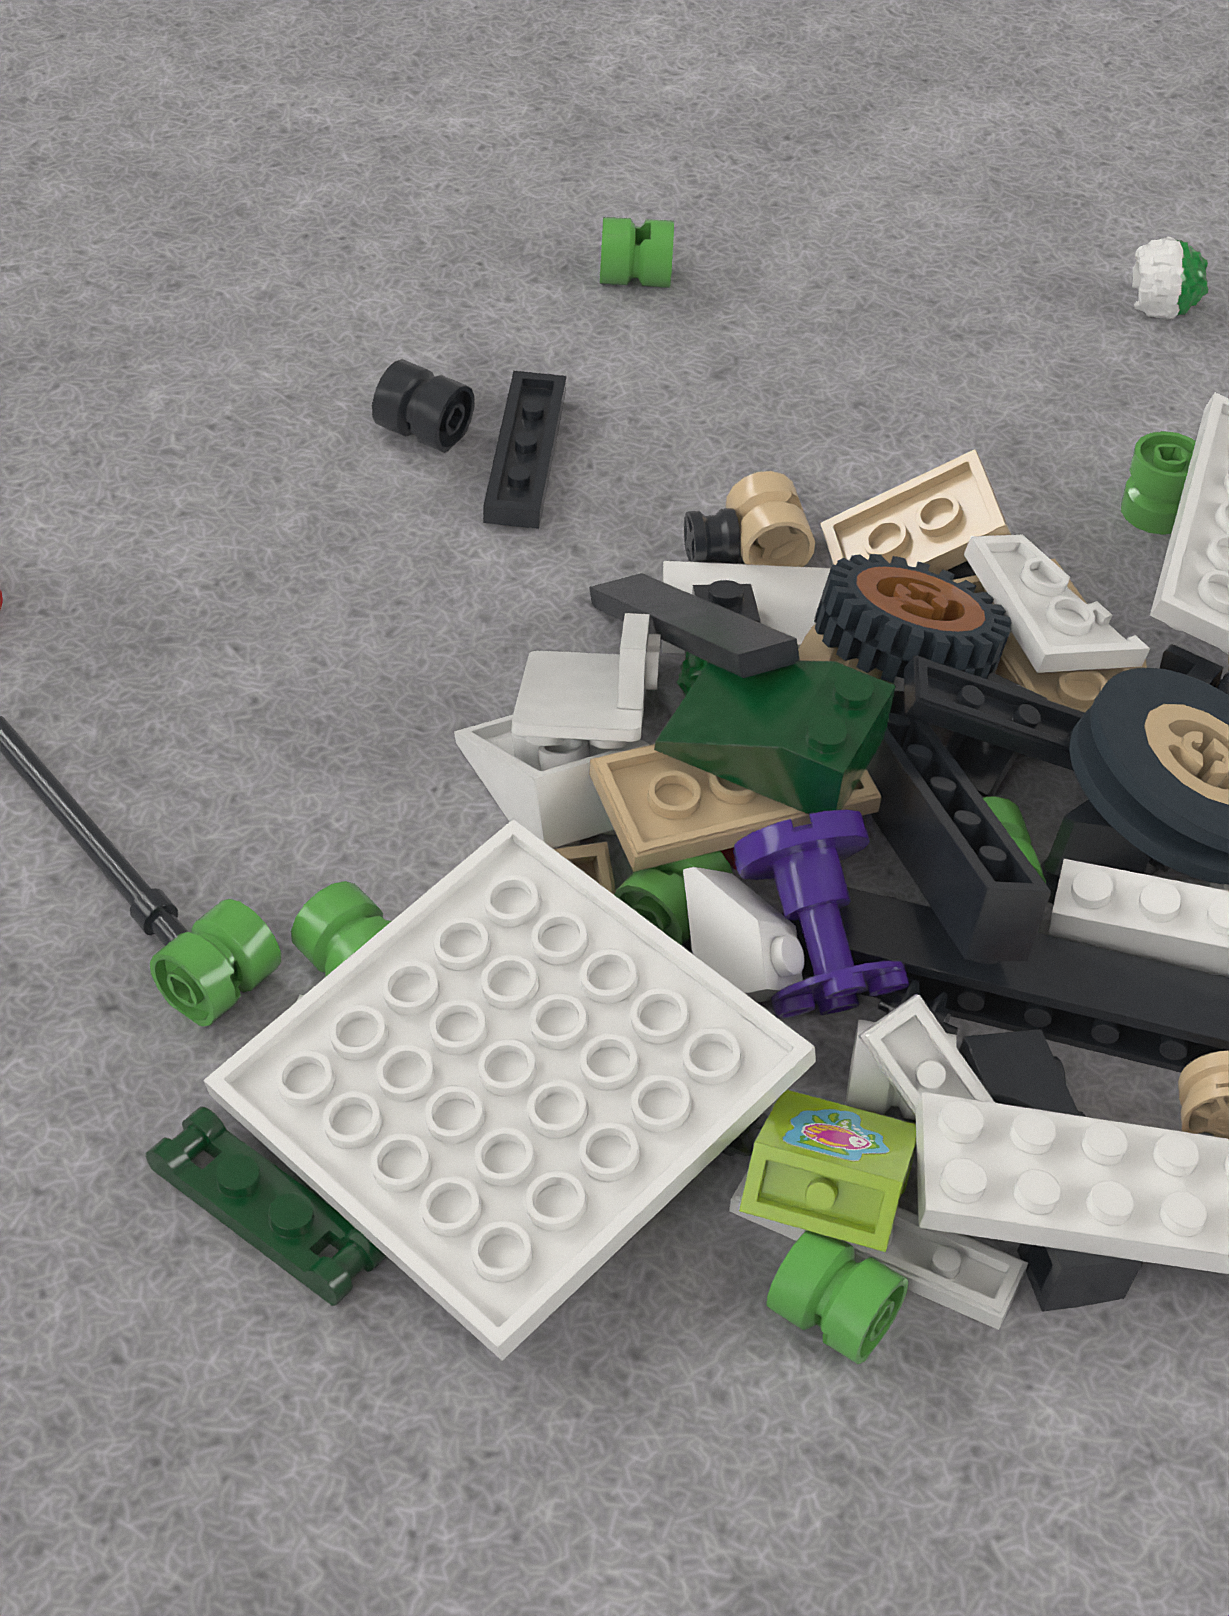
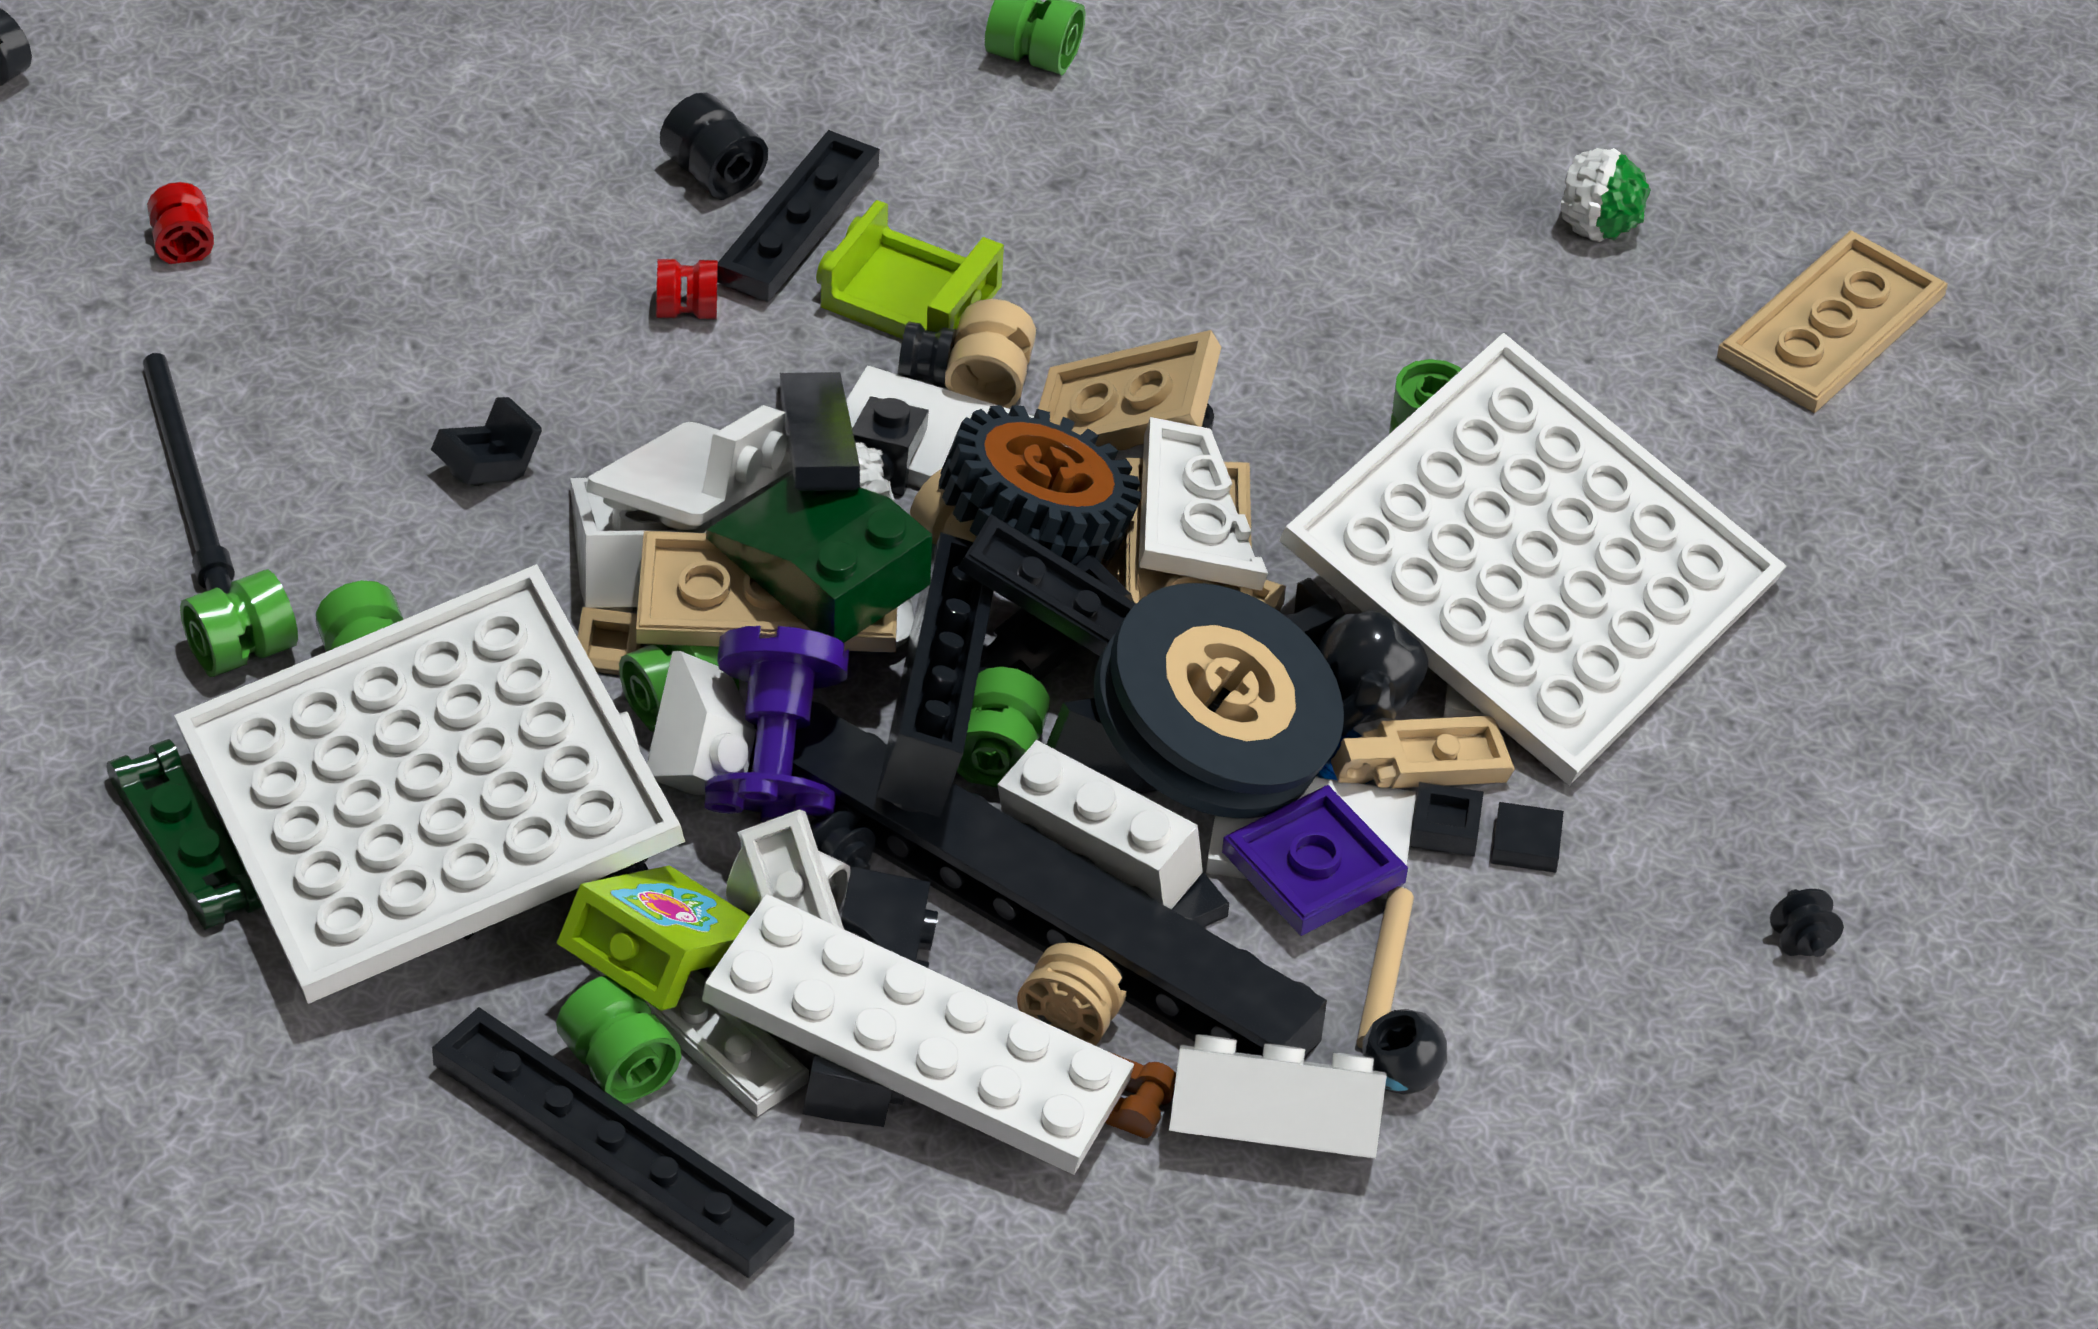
camera: 20 degrees right, 0 degrees up
(372, 721) = (490, 451): none -> black bracket
(468, 533) = (701, 289): none -> red wheel
(650, 483) = (897, 279): none -> lime panel
(891, 1411) = (614, 1142): none -> black plate

